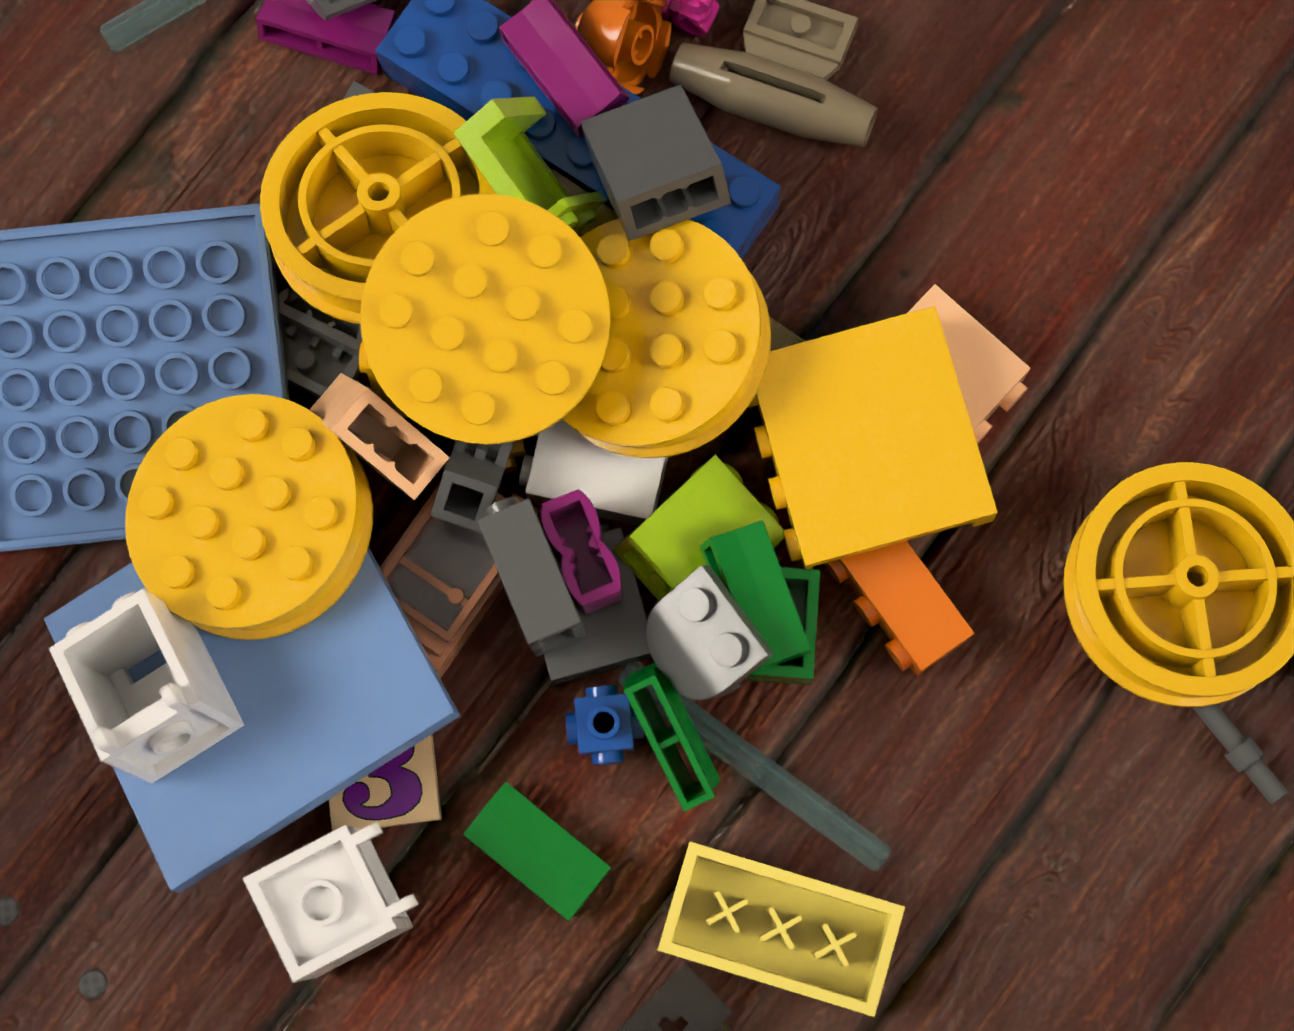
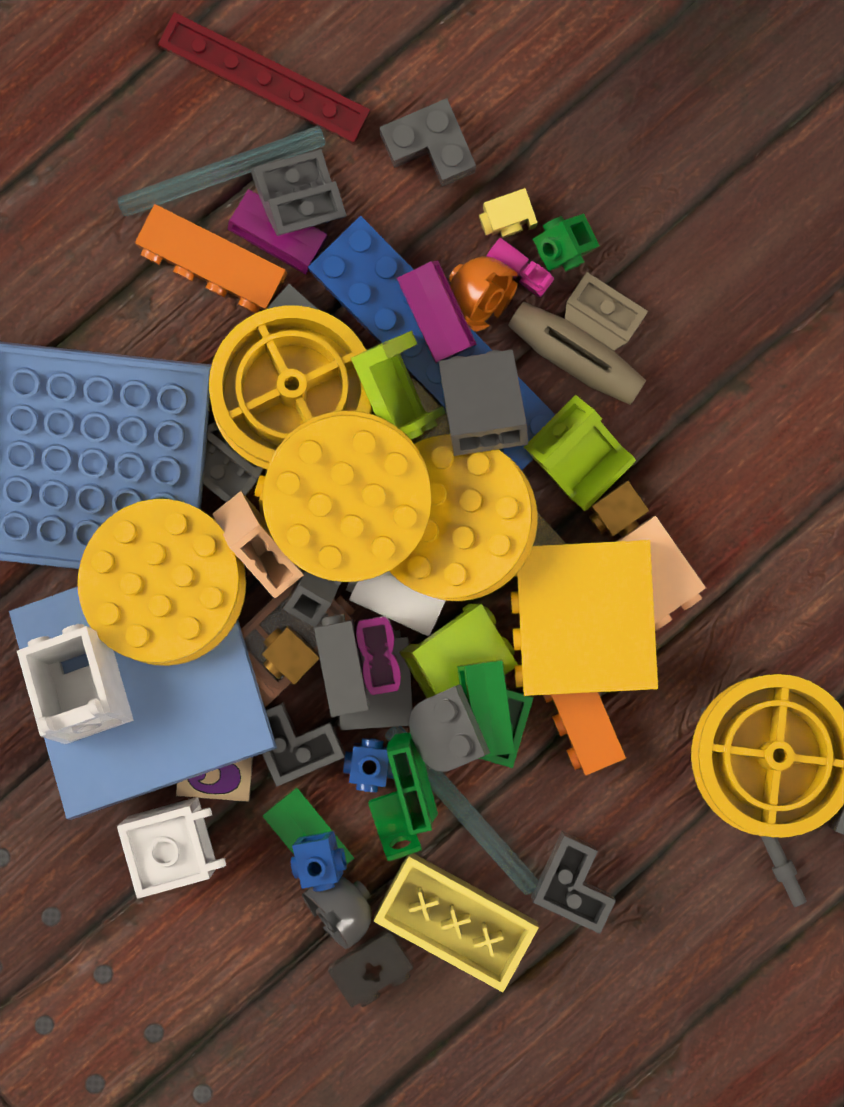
camera: 10 degrees right, 10 degrees up
(235, 74) = (210, 258): none -> orange brick
(453, 583) = (288, 654): none -> pearl gold brick
(496, 730) = (302, 752): none -> dark grey brick
(537, 882) = (318, 861): none -> blue brick
(606, 946) = (342, 910): none -> dark grey cylinder
(657, 807) = (392, 826): none -> green bracket
(806, 220) = (579, 453): none -> lime panel
(880, 289) = (618, 511): none -> pearl gold brick
(929, 846) = (563, 885): none -> dark grey brick

